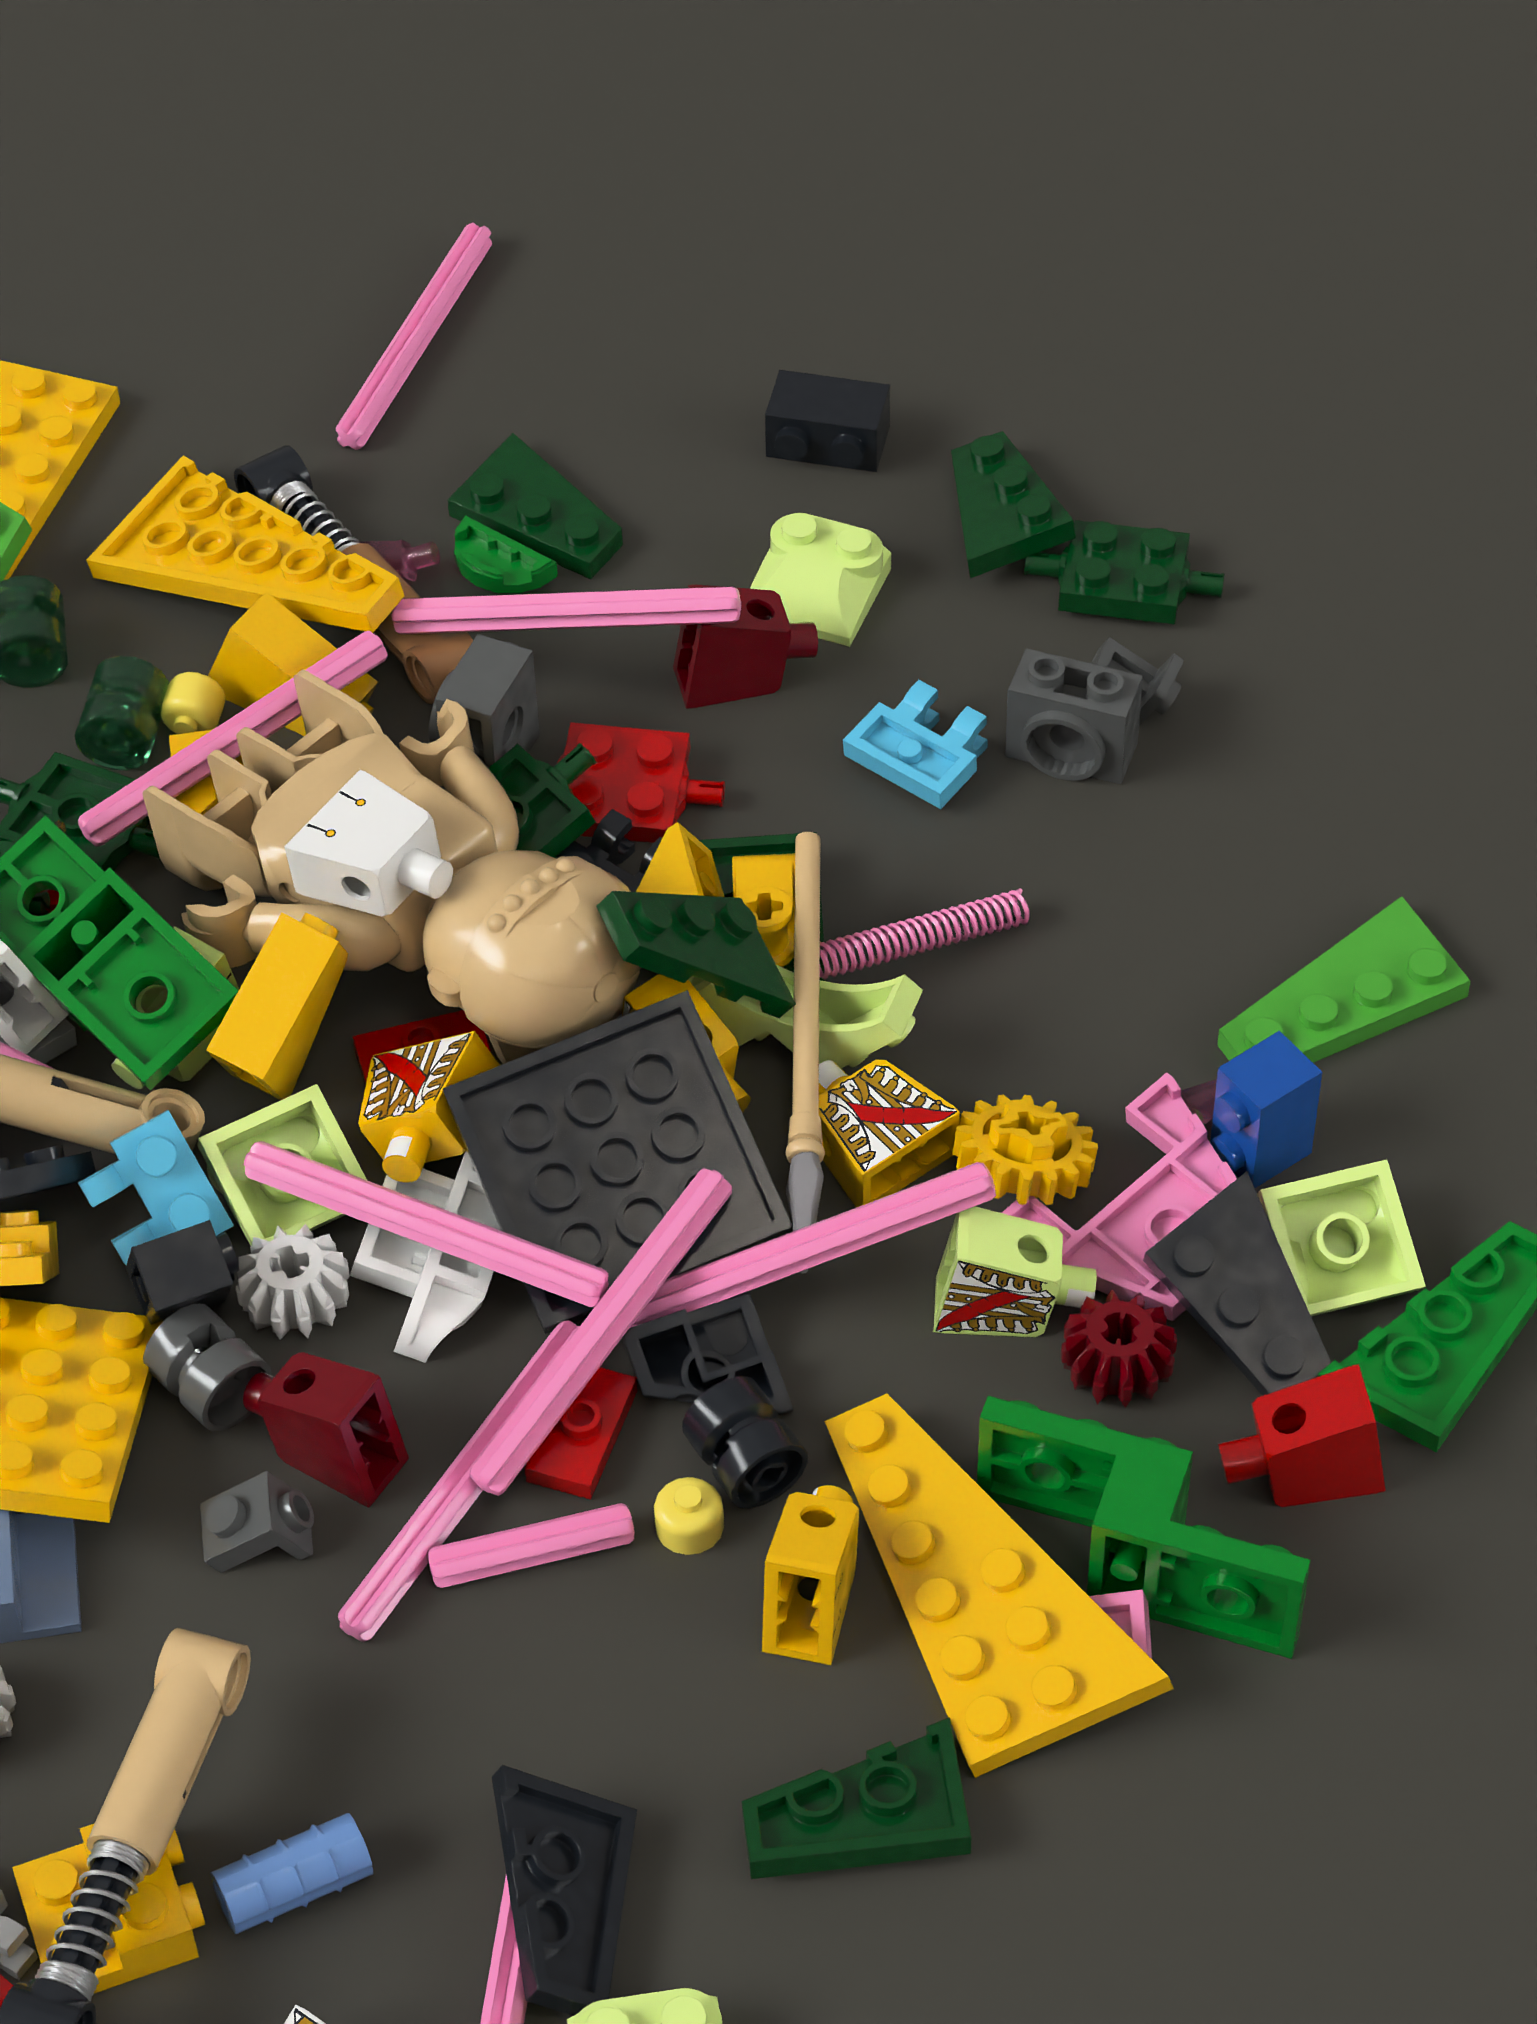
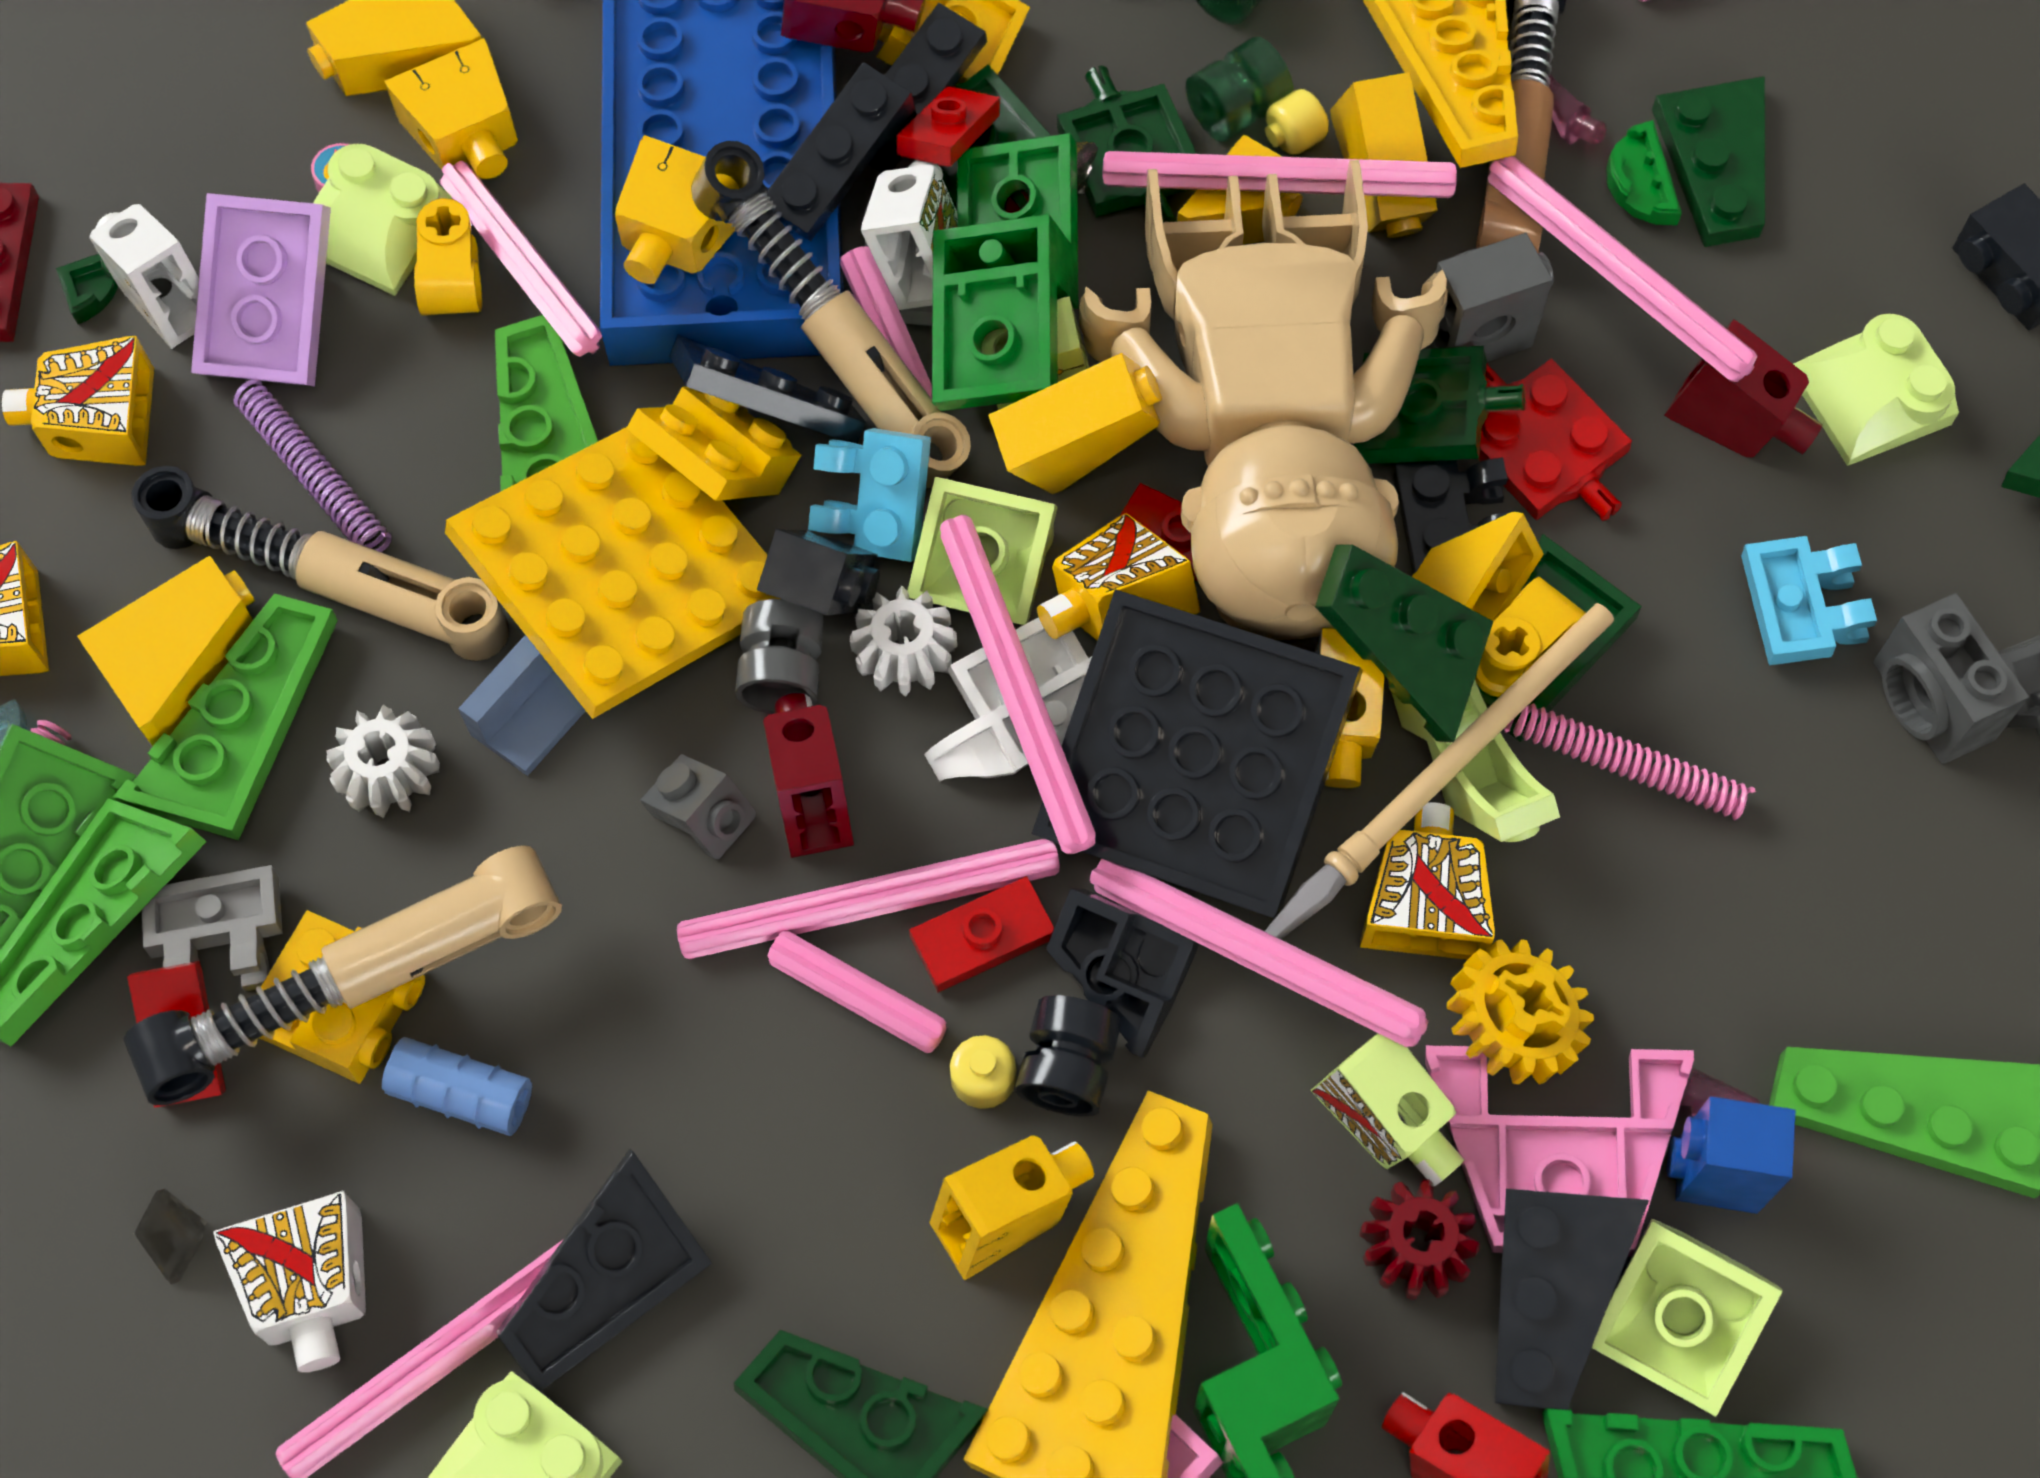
camera: 45 degrees right, 15 degrees up
(368, 850) = (1226, 354): white torso -> none
(600, 1332) = (1054, 876): bright pink axle -> none

